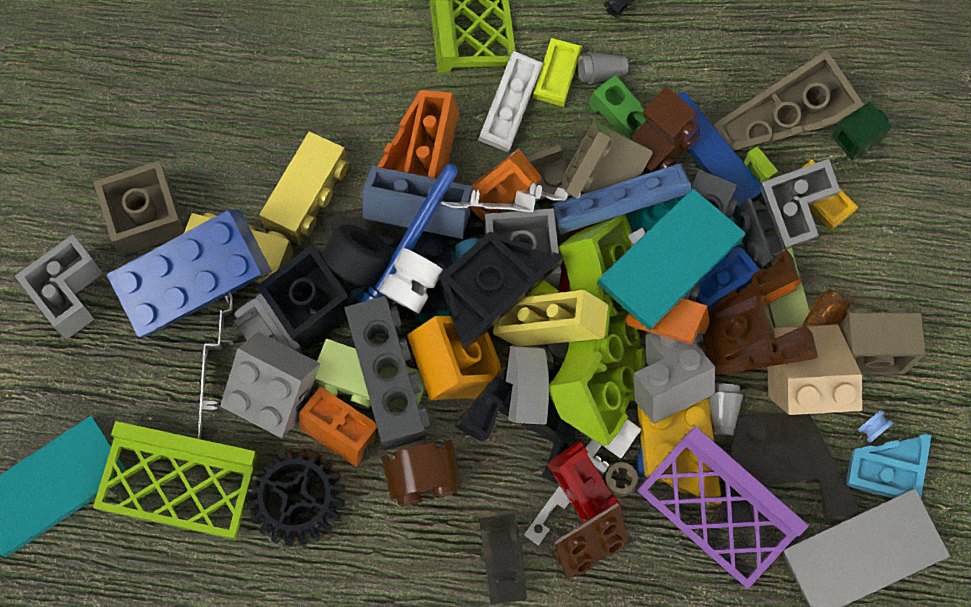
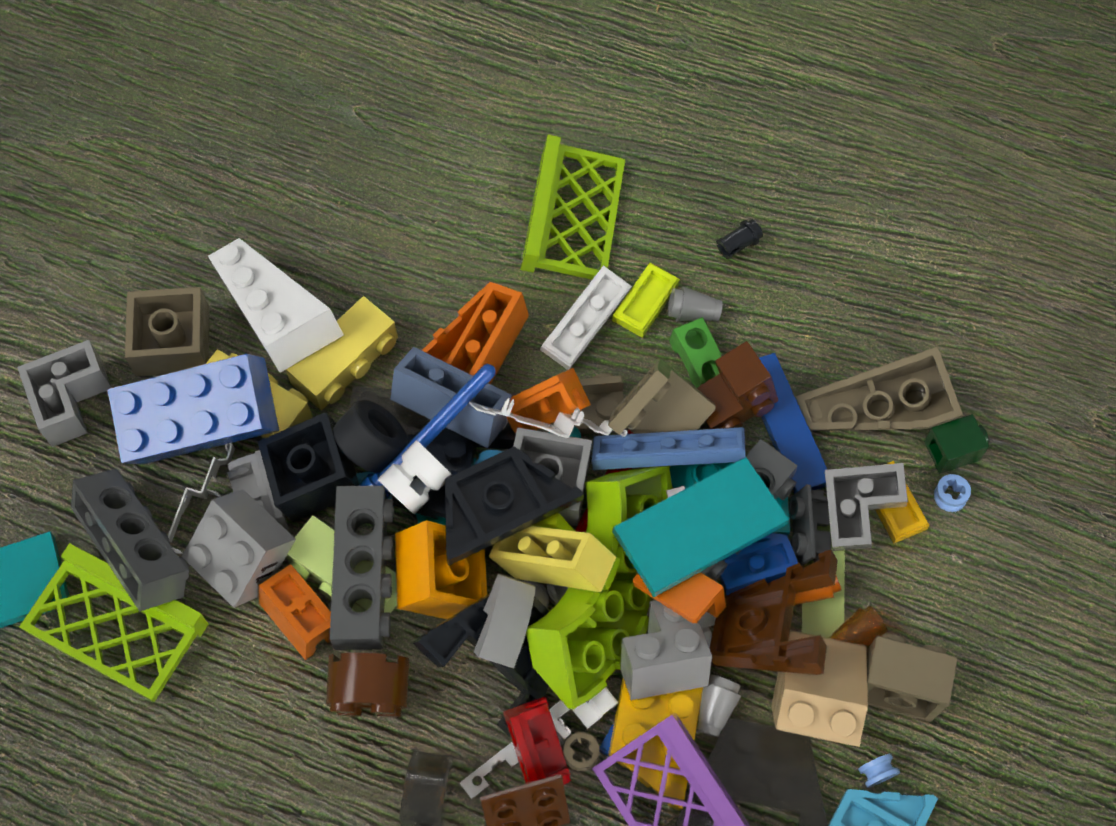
camera: 15 degrees right, 5 degrees down
(168, 403) = (129, 539): none -> dark grey brick
(236, 163) = (278, 309): none -> white wedge
(288, 511) = (219, 685): black gear -> none
(760, 165) = (832, 451): lime tile -> none
(871, 165) = (958, 484): none -> light blue bush

